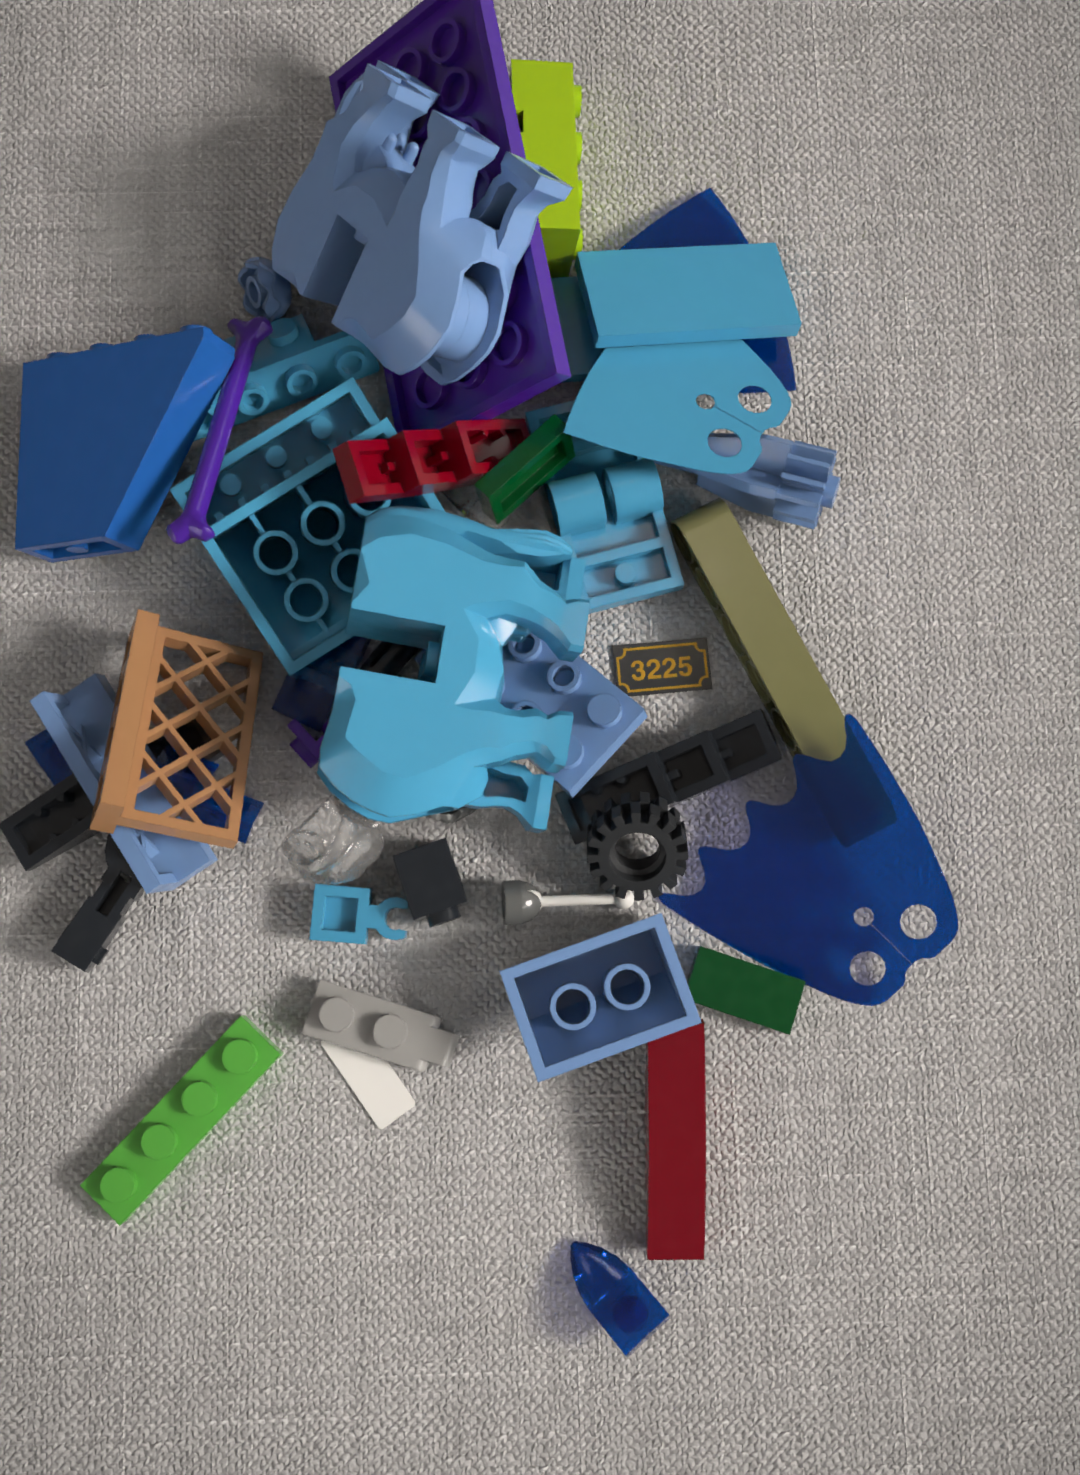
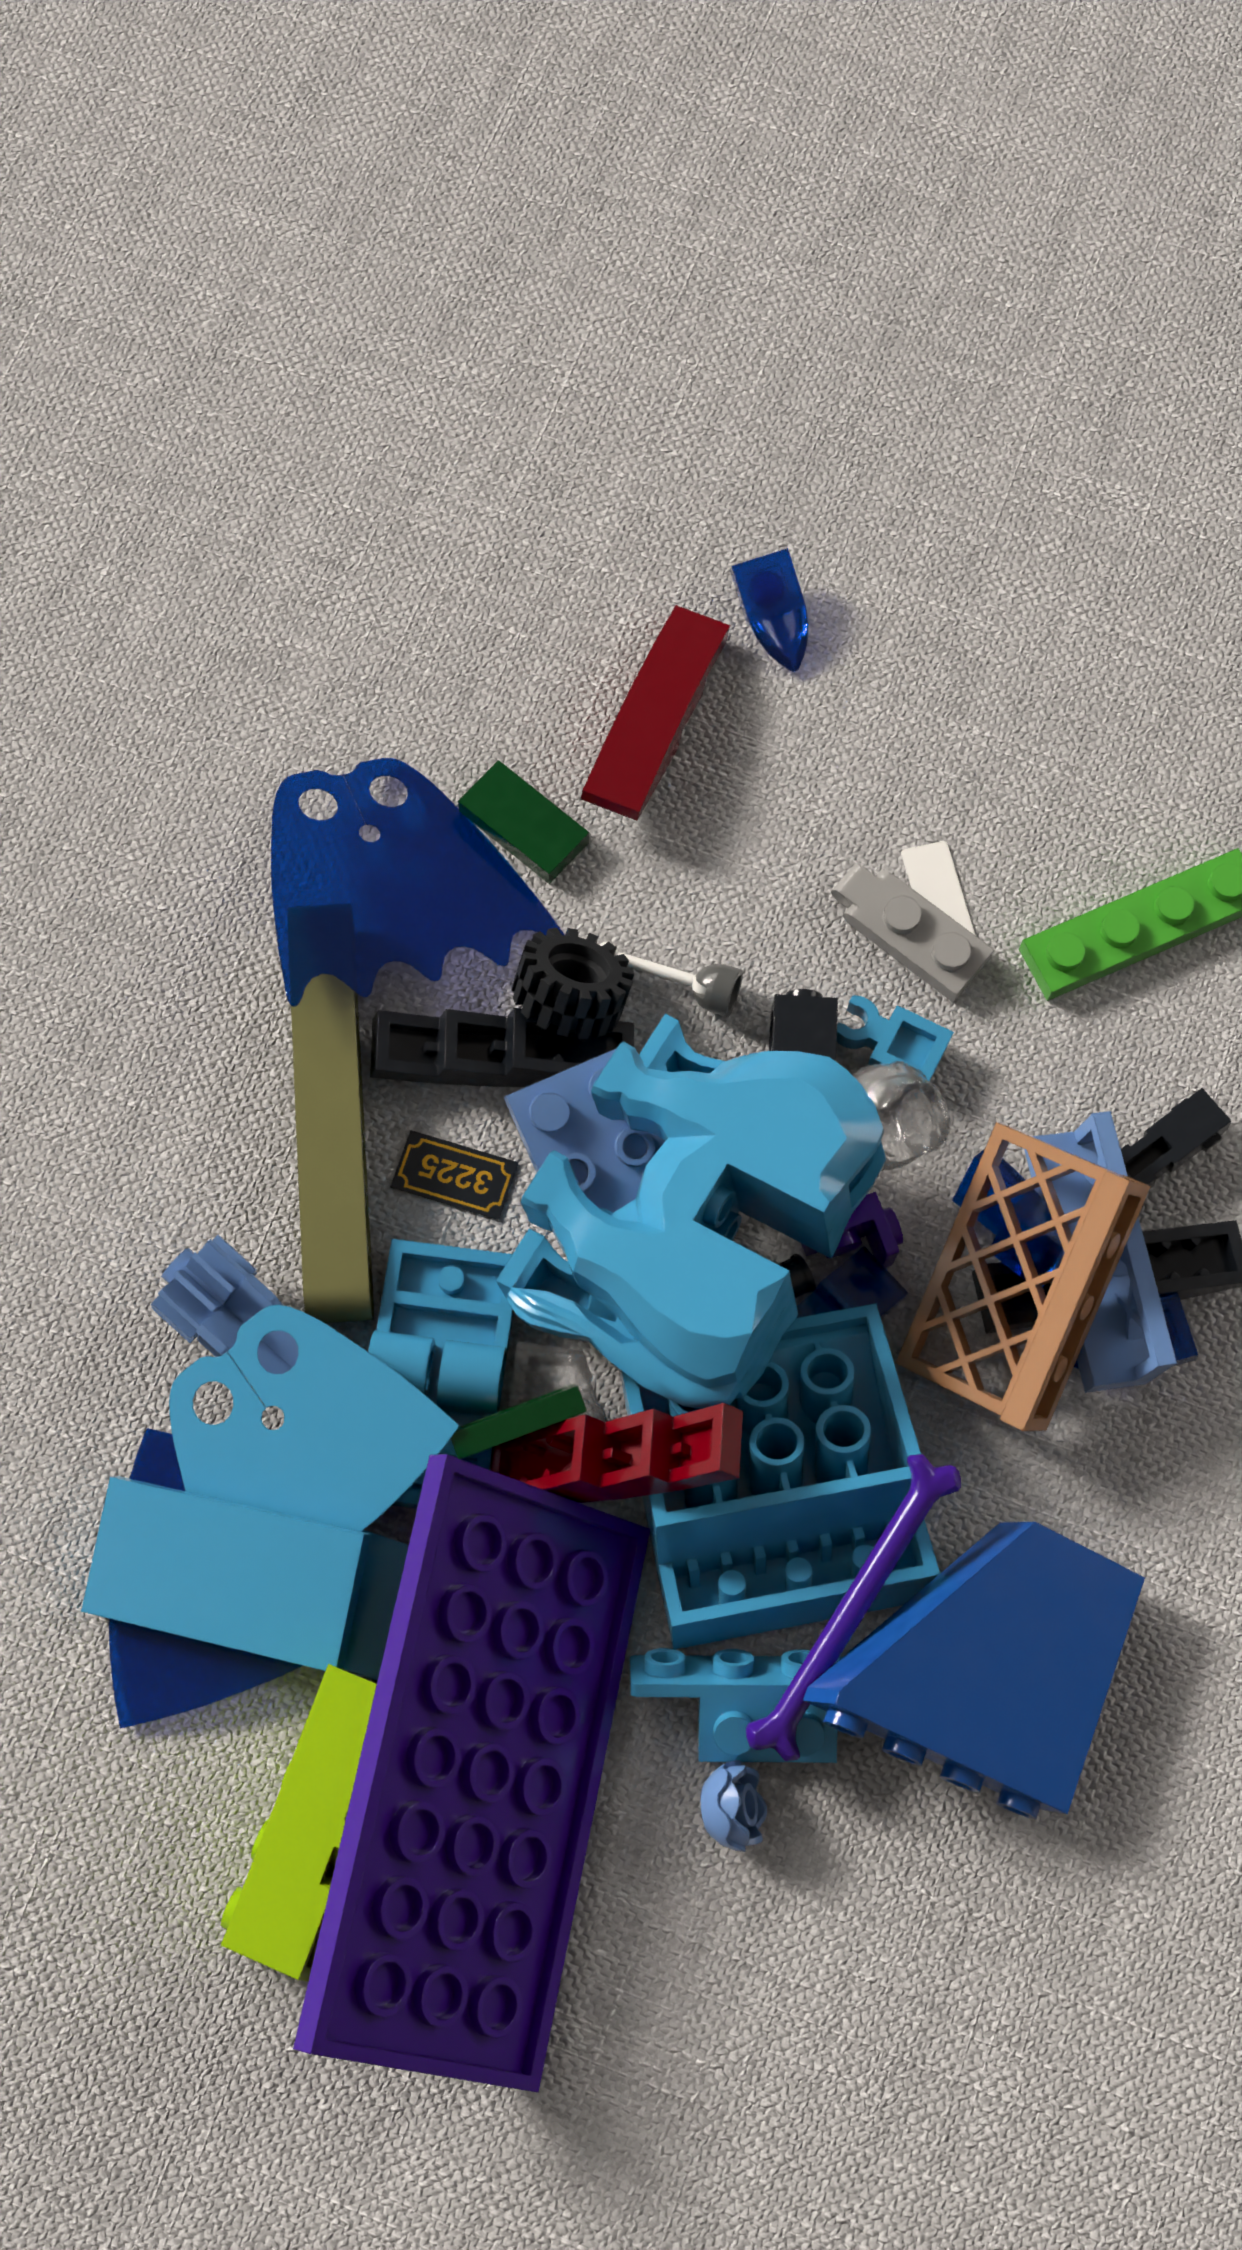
camera: 155 degrees left, 10 degrees down
(399, 242) = (587, 1796): medium blue animal -> none
(600, 997) = (677, 858): medium blue slope -> none

